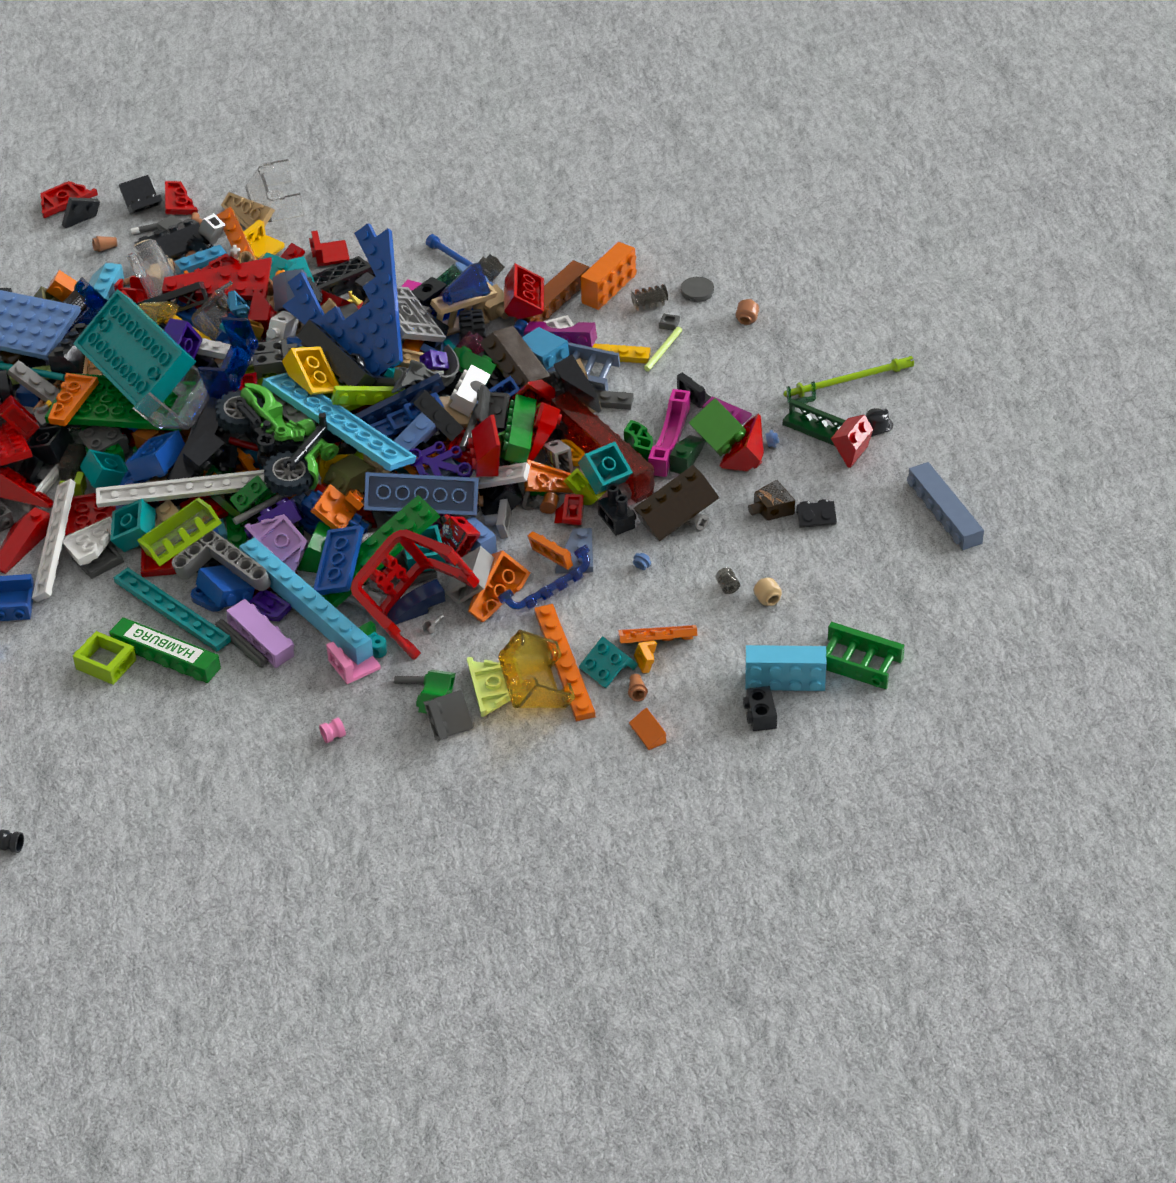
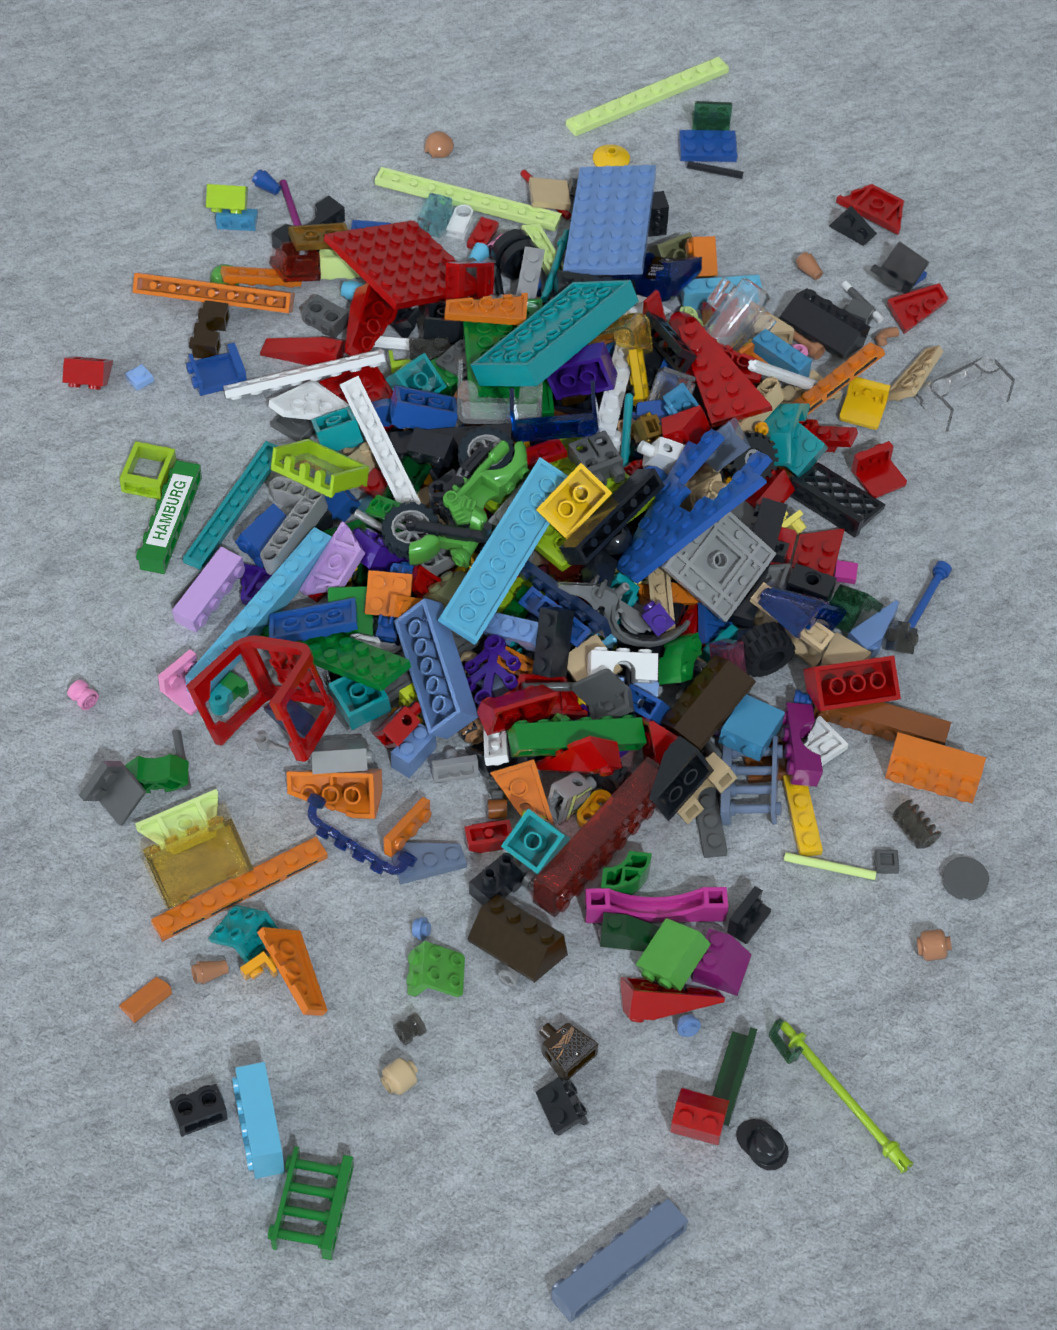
camera: 70 degrees right, 10 degrees up
(198, 243) = (830, 347): black hinge -> none
(212, 228) = (845, 345): light grey brick -> none
(361, 394) = (554, 556): lime plate -> none
(680, 561) = (435, 969): none -> bright green bracket

